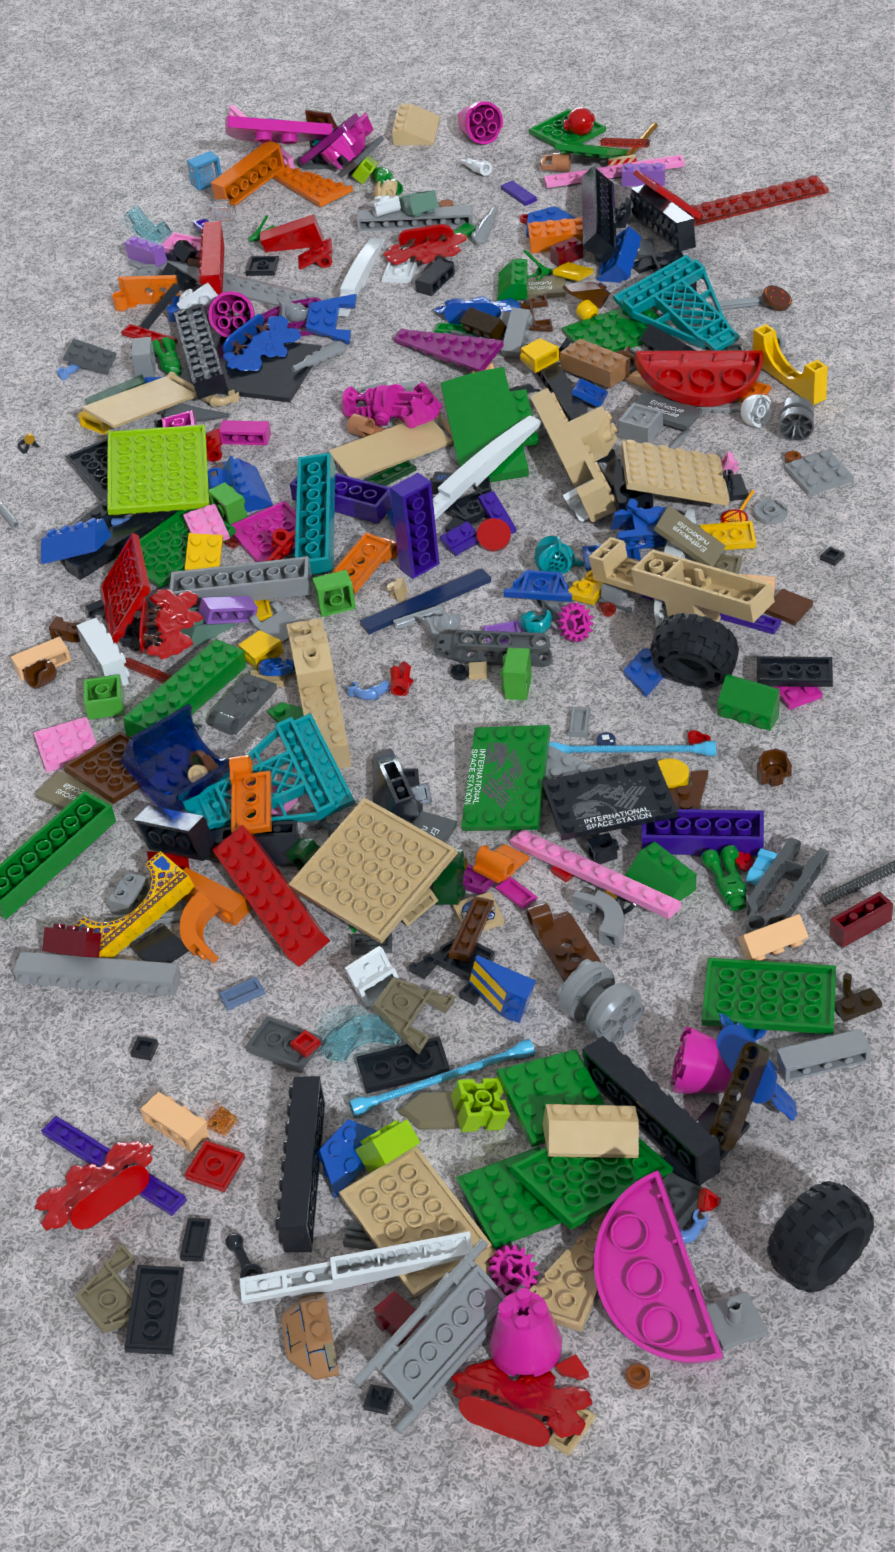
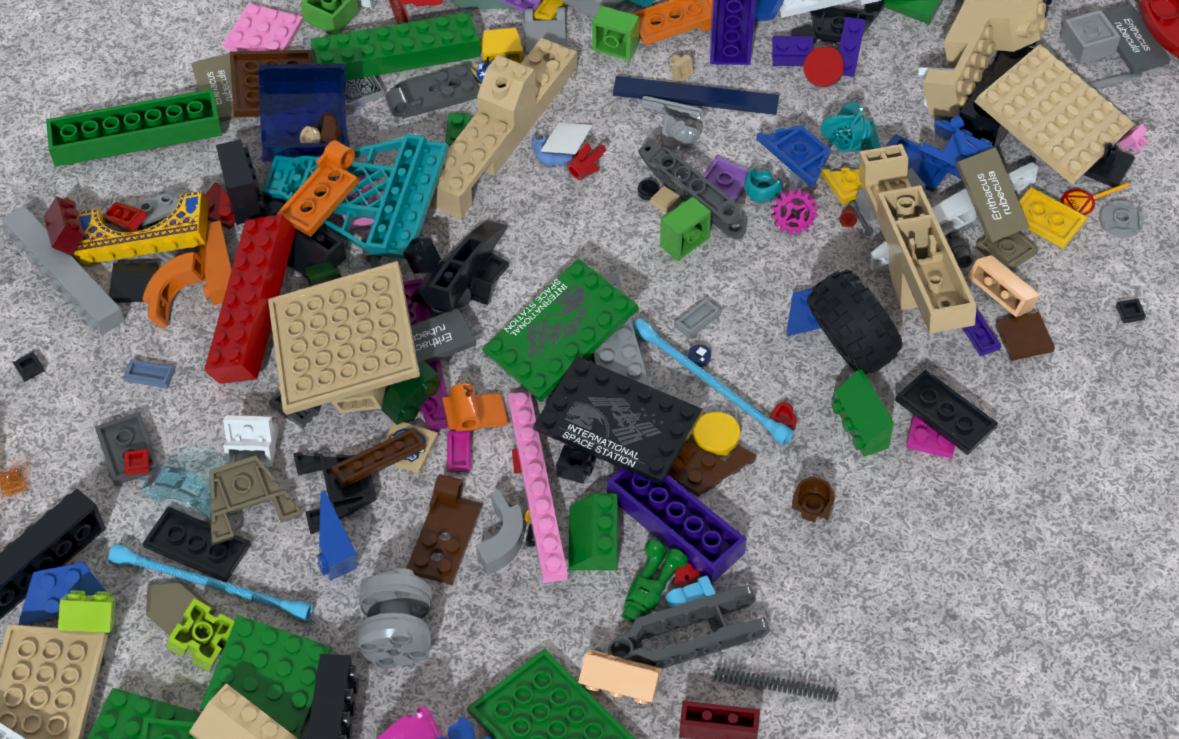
camera: 35 degrees right, 10 degrees up
(112, 907) = (125, 216): none -> red tile
(363, 789) = (421, 255): none -> black brick
(371, 674) = (566, 138): none -> white sticker

